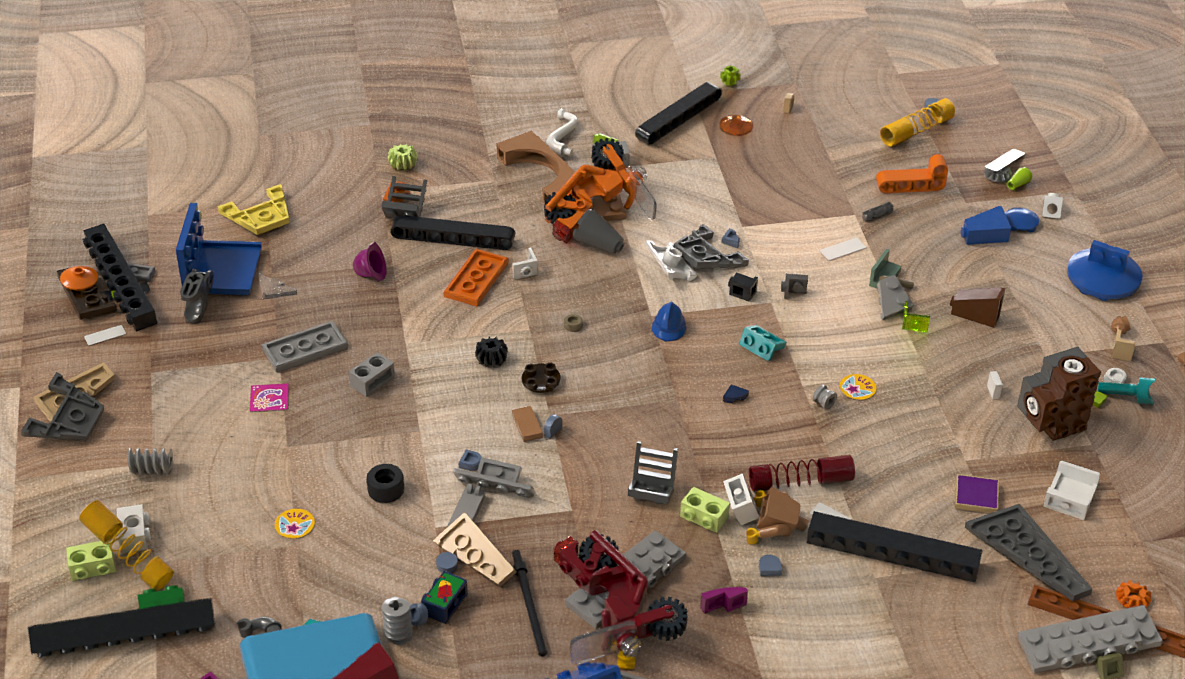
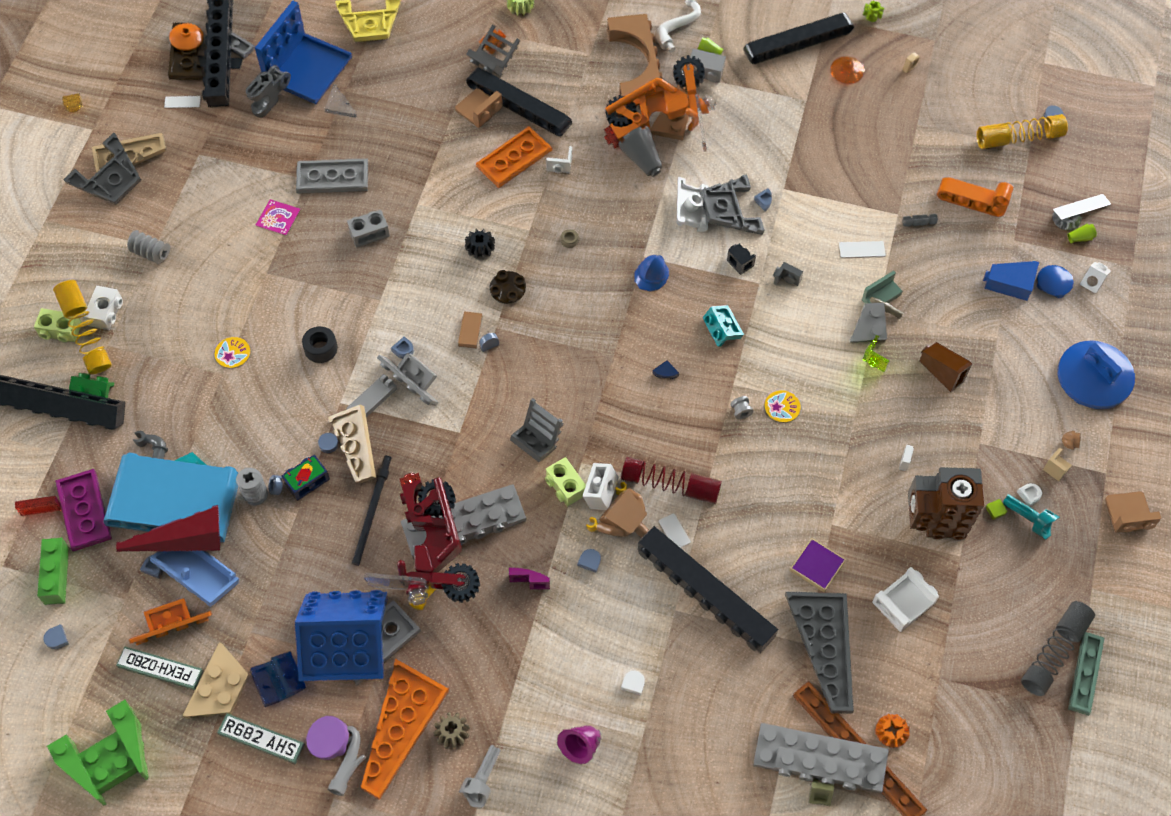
camera: 25 degrees right, 20 degrees up
(370, 263) = (430, 110): magenta piece -> none
(418, 249) = (479, 106): none -> medium nougat bracket
(879, 648) = (633, 682): none -> white tile

